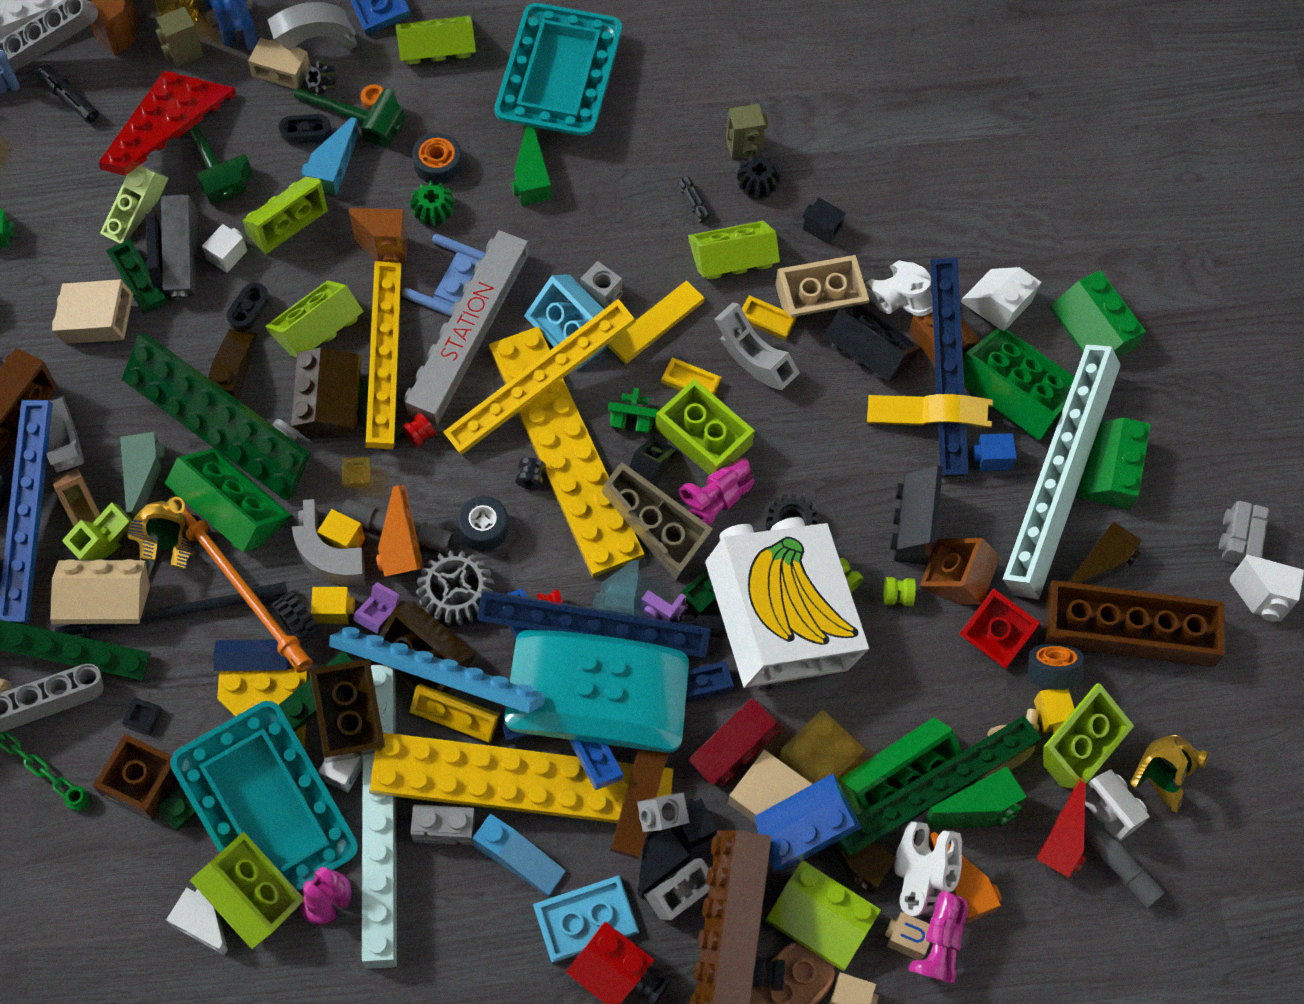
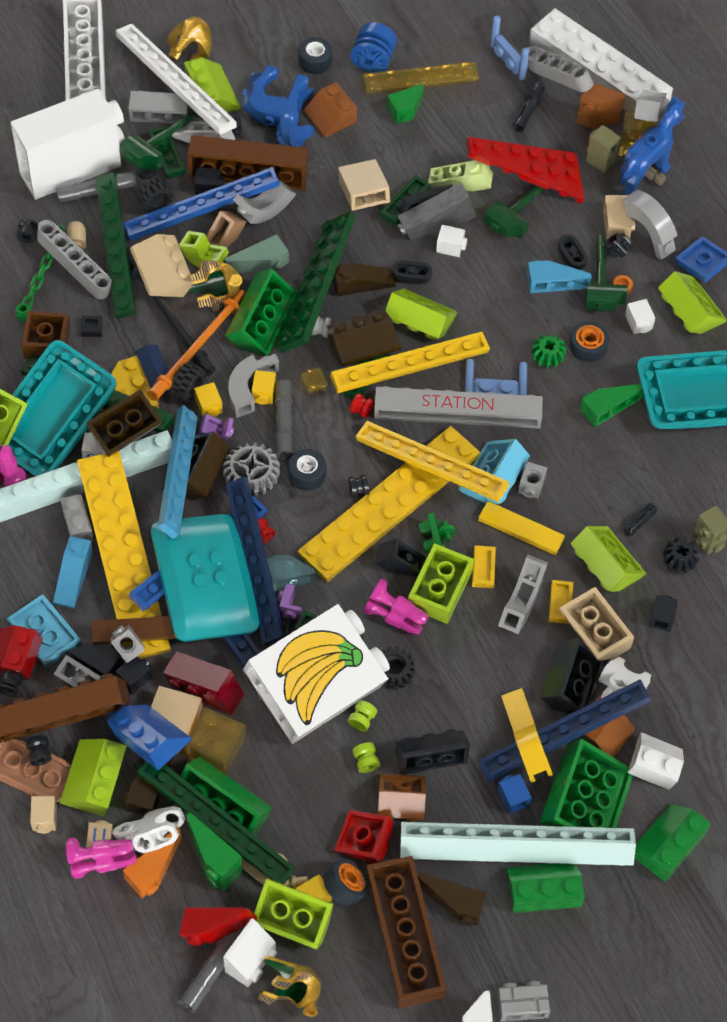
camera: 70 degrees right, 5 degrees down
(286, 214) = (493, 265): lime slope -> none
(381, 233) = (503, 327): dark orange slope -> none
(398, 542) = (271, 418): orange slope -> none
(429, 94) = (640, 316): none -> white brick
(454, 713) = (156, 494): yellow tile -> none
(656, 518) = (352, 572): dark tan wedge -> none

